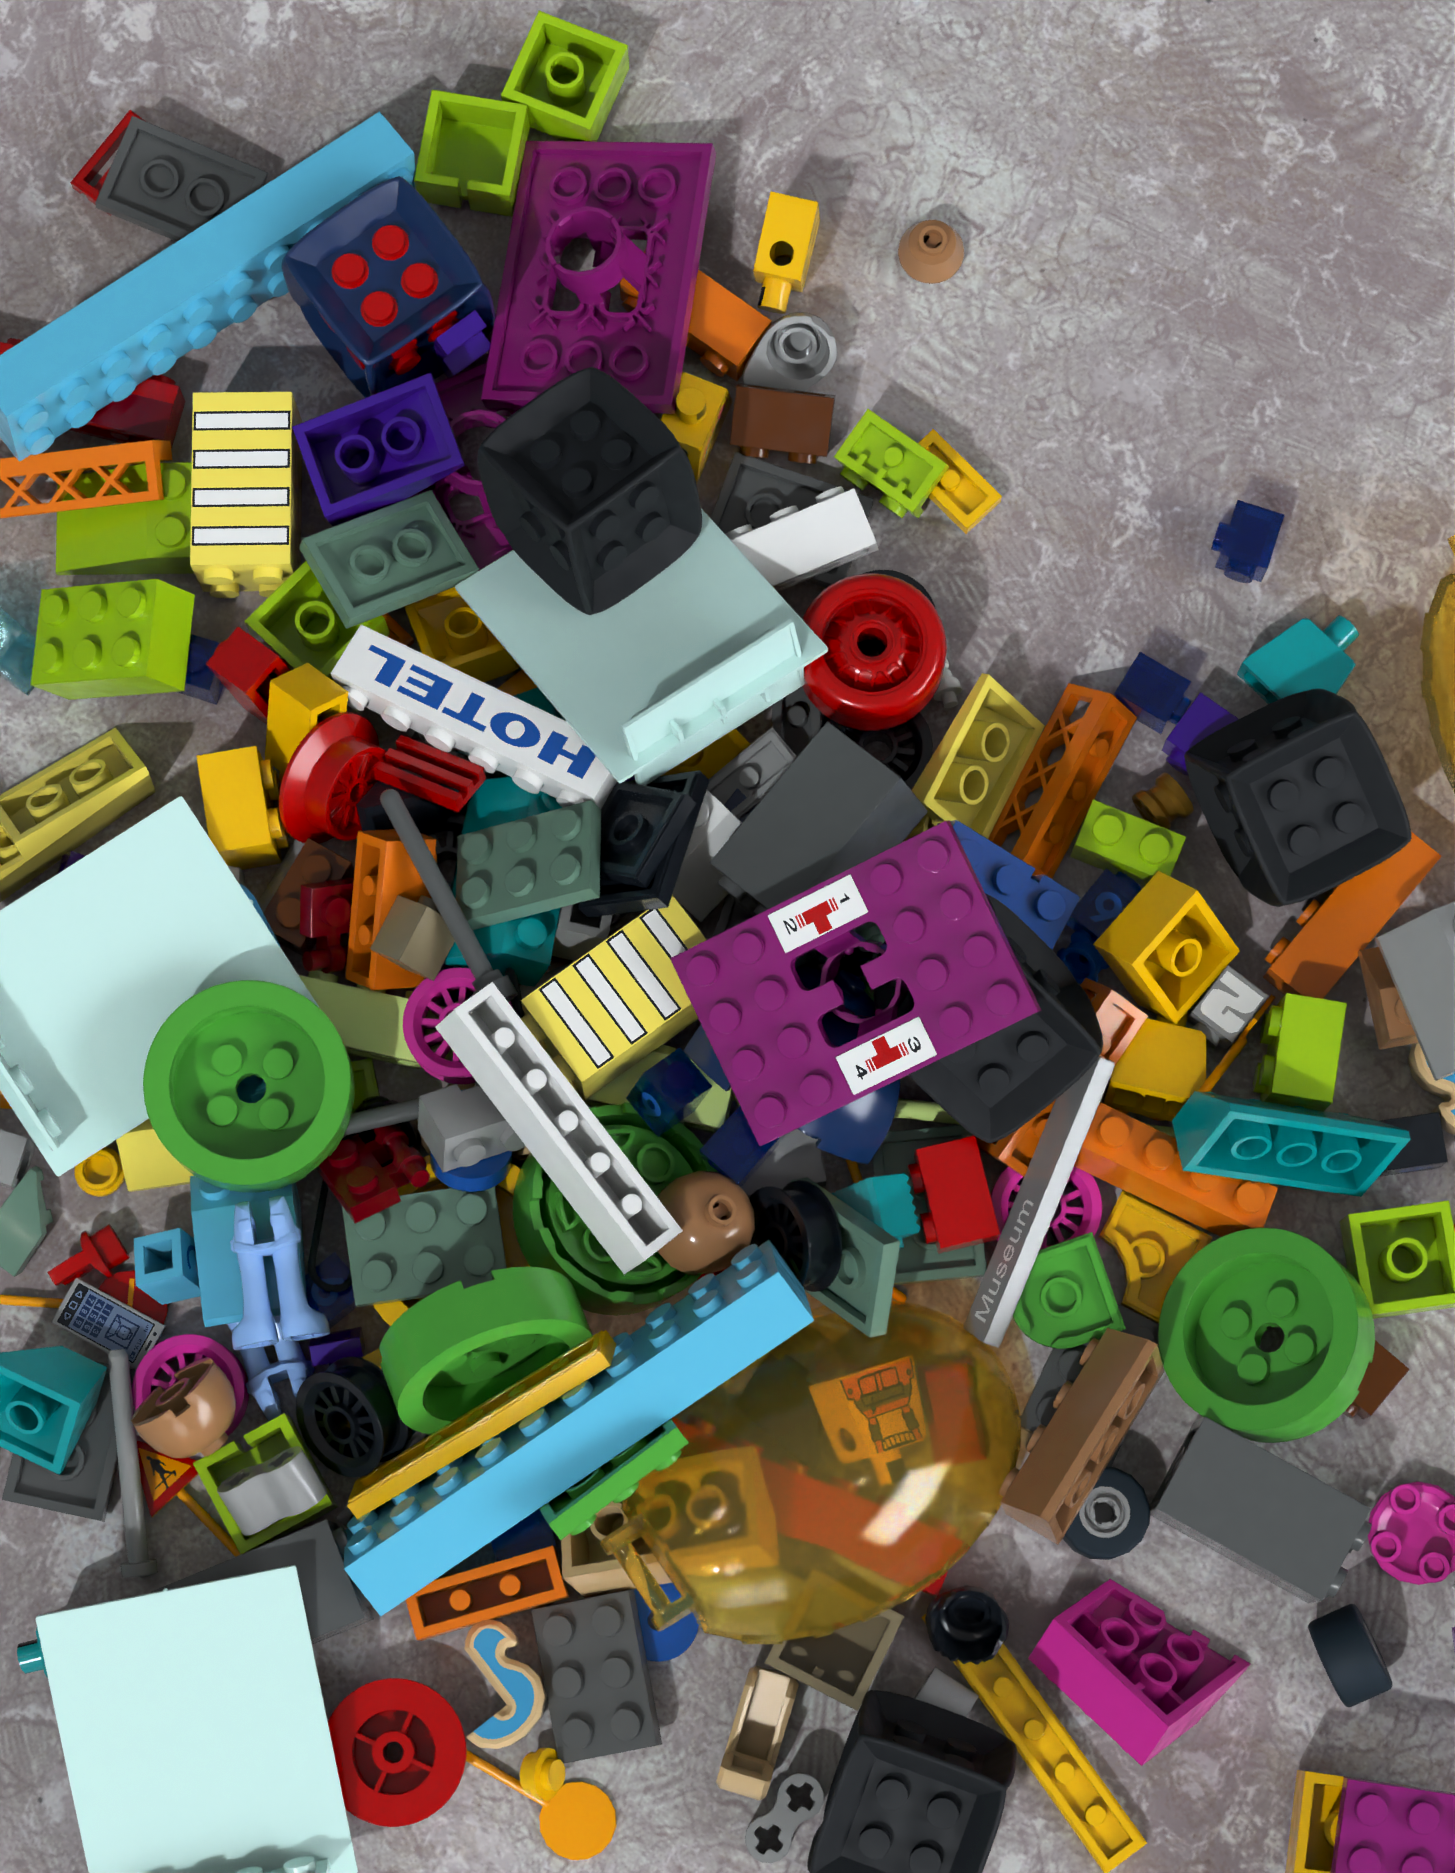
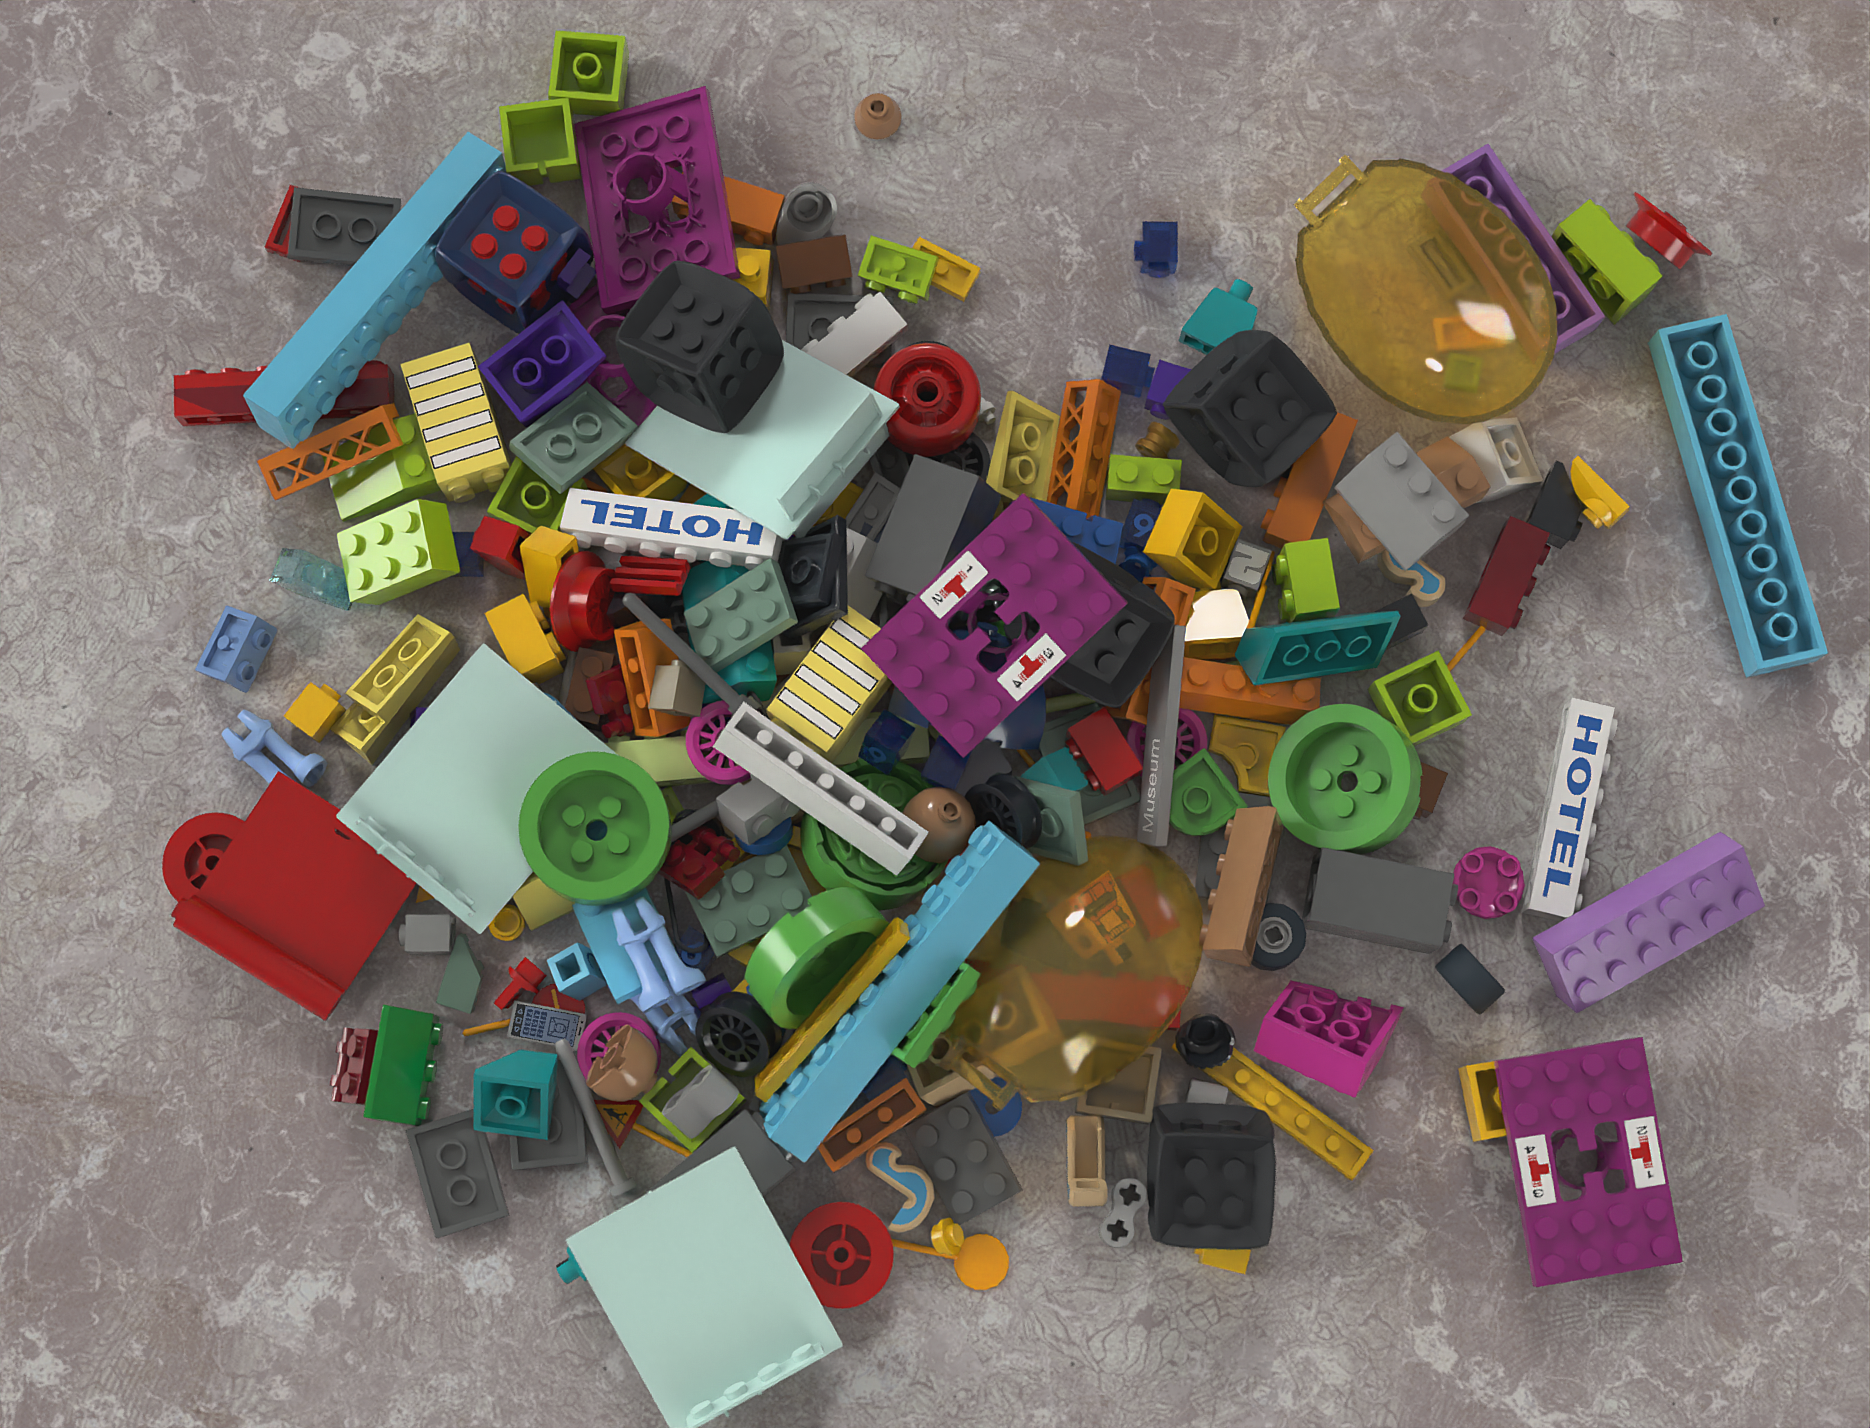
camera: 20 degrees left, 0 degrees up
(787, 231) = (778, 133): yellow torso -> none

